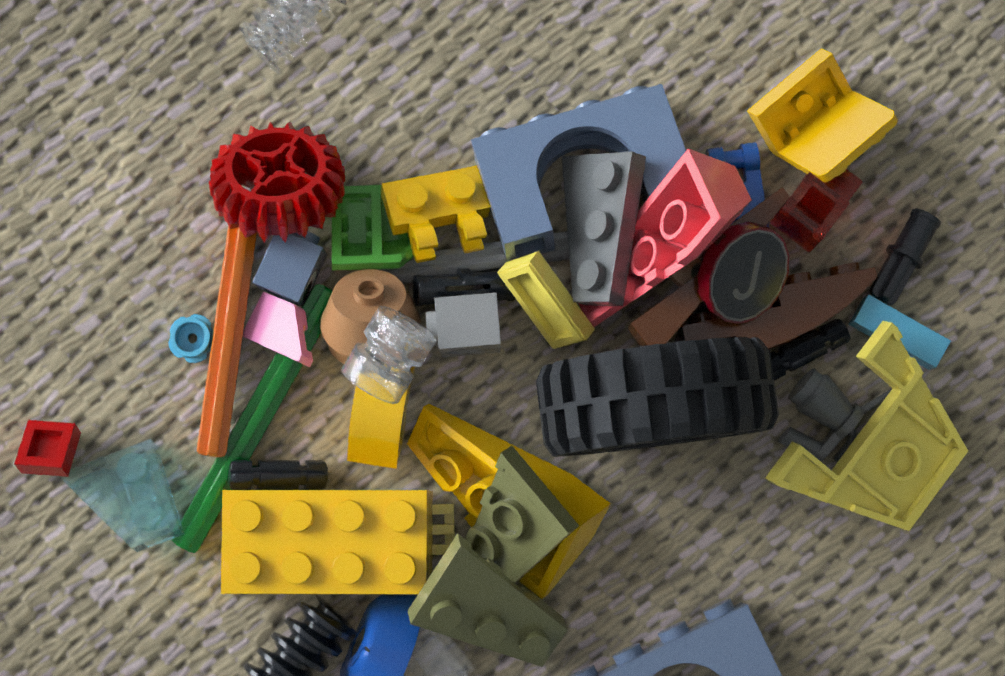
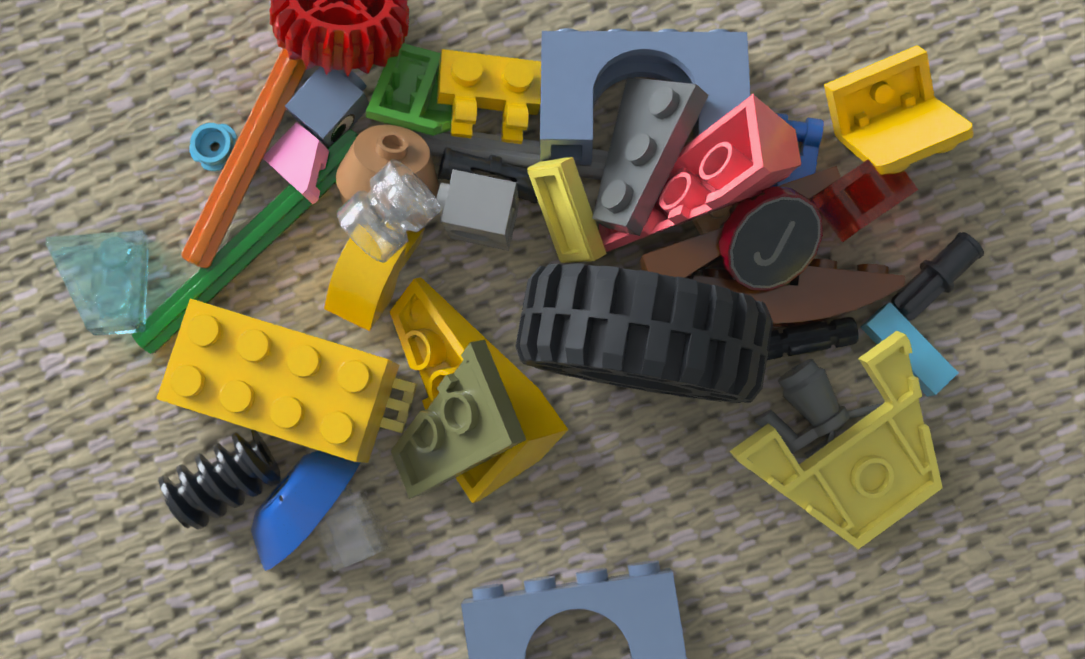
camera: 25 degrees right, 0 degrees up
(47, 448) = (41, 209): red plate -> none
(278, 475) = (252, 302): black axle -> none
(483, 607) = (409, 493): olive wing -> none

